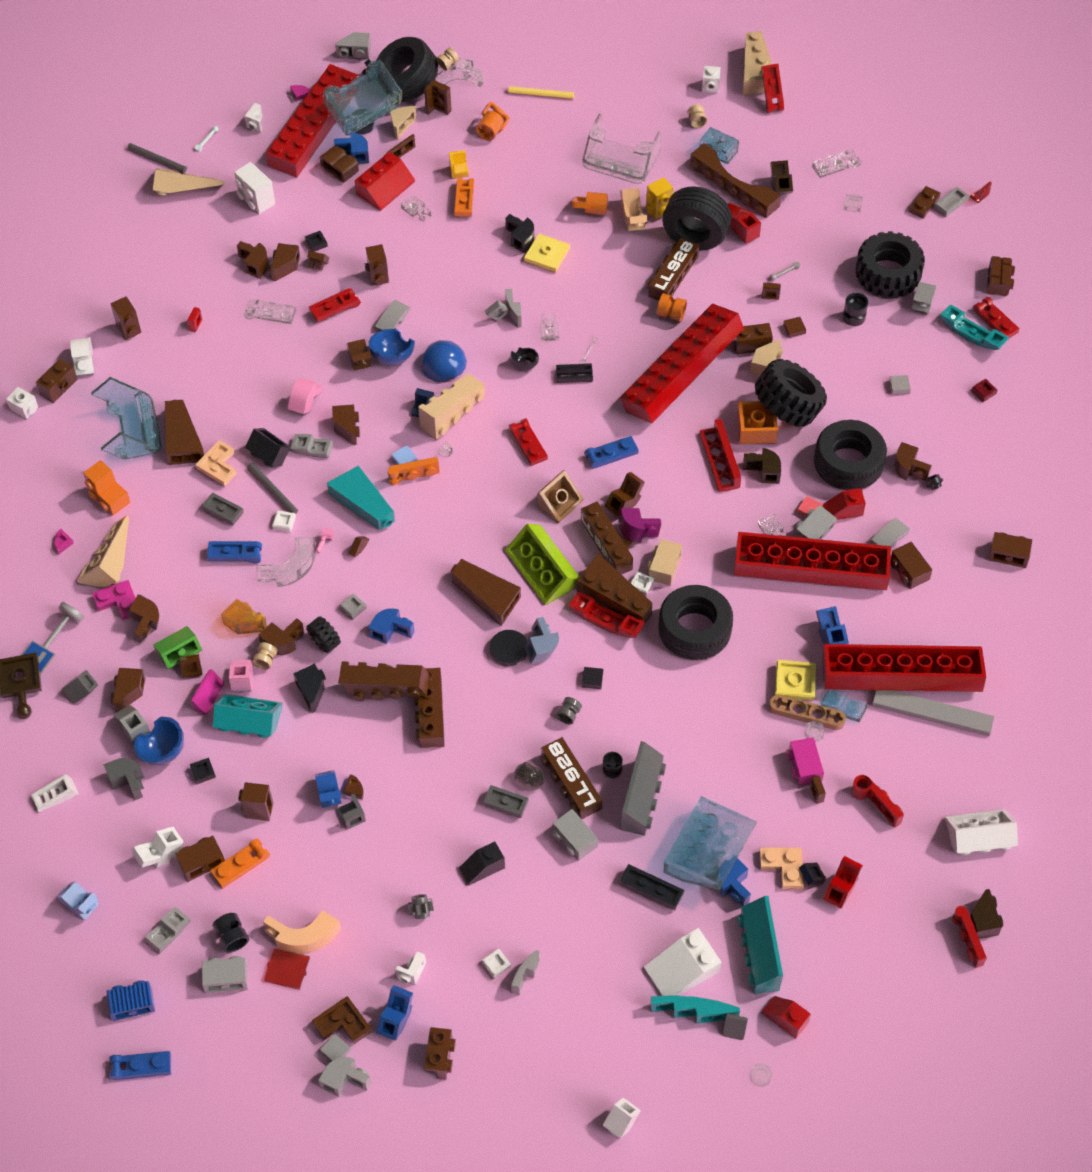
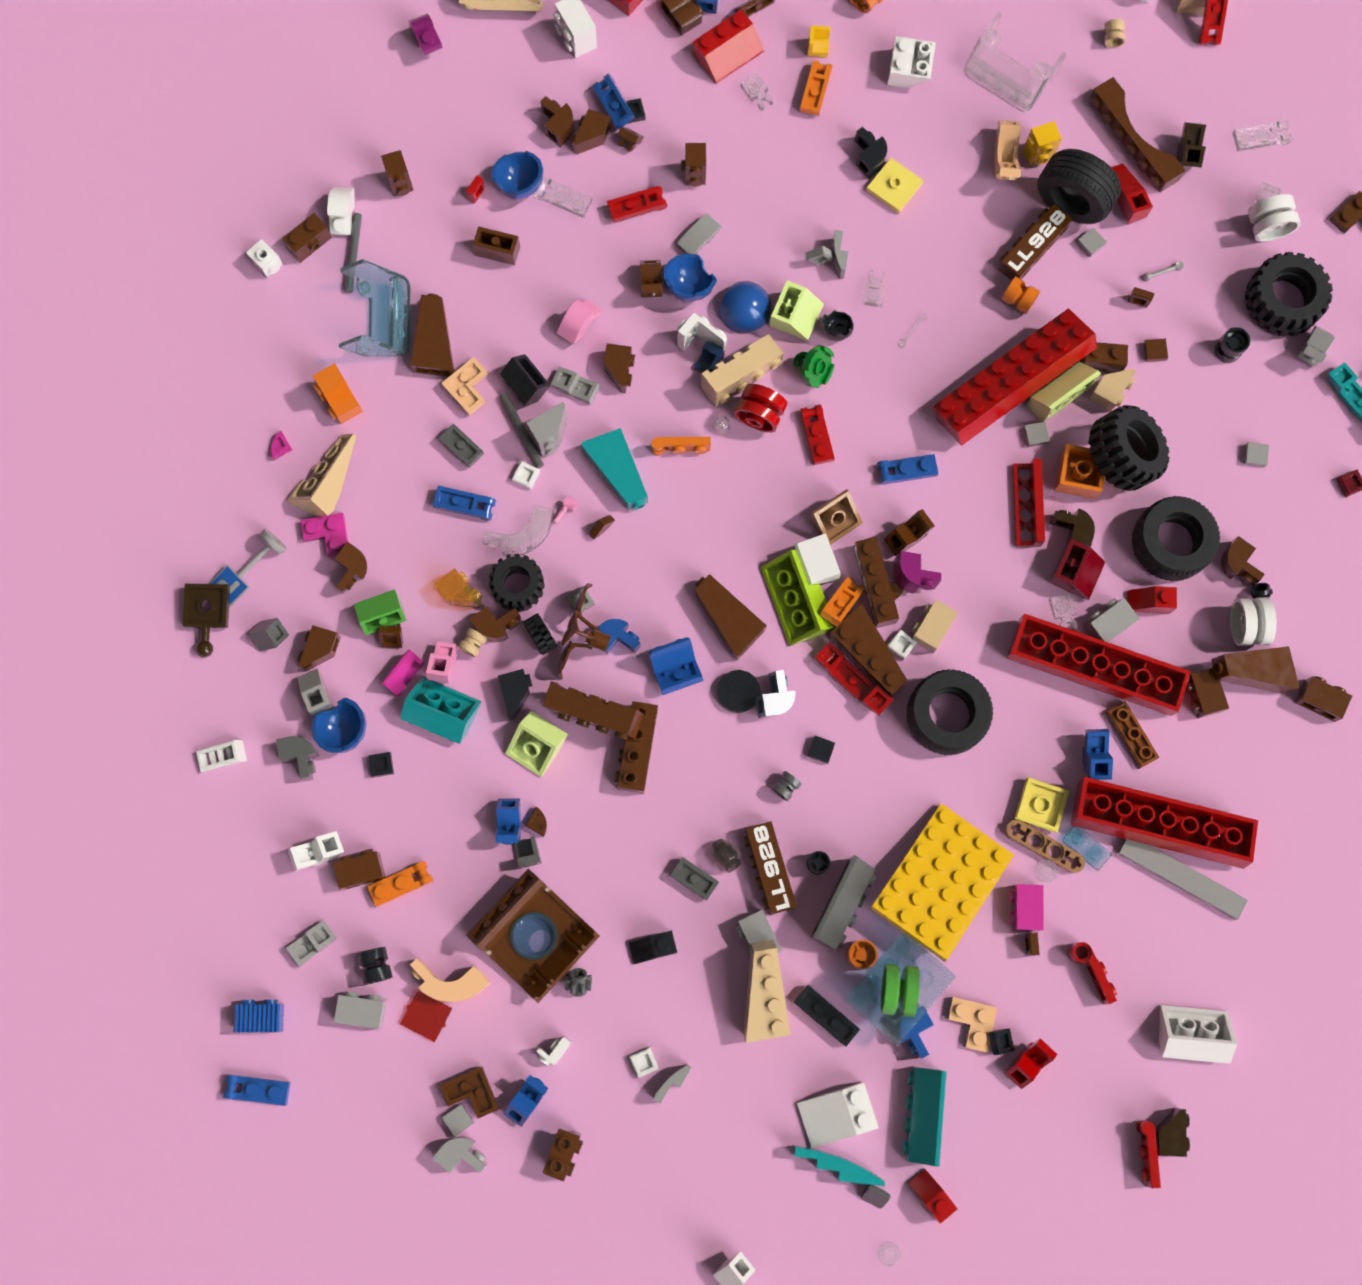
camera: 10 degrees right, 20 degrees up
(78, 900) = (223, 890): medium blue brick -> none
(98, 381) = (353, 249): none -> dark grey bar
(128, 217) = (425, 34): none -> magenta brick
(222, 354) = (496, 245): none -> reddish brown brick
(229, 300) = (518, 174): none -> blue cylinder
(256, 801) = (429, 821): reddish brown brick -> none
(294, 587) = (516, 565): none -> black tyre
(295, 478) = (548, 429): none -> light grey slope
(298, 235) = (613, 101): none -> blue plate
(338, 723) = (536, 743): none -> yellowish green slope
(369, 875) = (533, 935): none -> reddish brown panel
(372, 623) = (594, 638): none -> reddish brown plant
(404, 455) = (674, 423): light blue tile -> none
(408, 380) = (699, 327): none -> white bracket
(447, 634) = (675, 665): none -> blue bracket
(474, 427) = (760, 408): none -> red wheel
(487, 354) = (796, 311): none -> yellowish green slope
(514, 389) = (816, 366): none -> green tile
(537, 164) = (911, 62): none -> white slope
(553, 529) = (818, 560): none -> white slope
(575, 371) = (892, 348): black tile -> none
(581, 557) = (842, 601): none -> orange plate
(592, 876) = (766, 1004): none -> tan wedge
(593, 203) = (965, 133): orange piece -> none
(669, 827) = (861, 954): none -> orange wheel
(711, 834) = (902, 990): none -> bright green wheel
(713, 406) = (1036, 434): none -> light grey tile
(720, 261) = (1091, 242): none -> light grey tile
(724, 144) = (1132, 79): clear light blue brick -> none
(725, 368) = (1062, 391): none -> yellowish green slope
(725, 754) = (942, 882): none -> yellow plate
(775, 494) = (1078, 569): none -> dark red slope
(807, 505) = (1112, 590): coral tile -> none
(861, 214) = (1274, 218): none -> white wheel
(864, 618) = (1138, 747): none -> dark orange tile
(890, 533) = (1193, 648): light grey slope -> none
(932, 501) = (1253, 621): none -> white wheel
(947, 535) = (1260, 669): none -> reddish brown slope

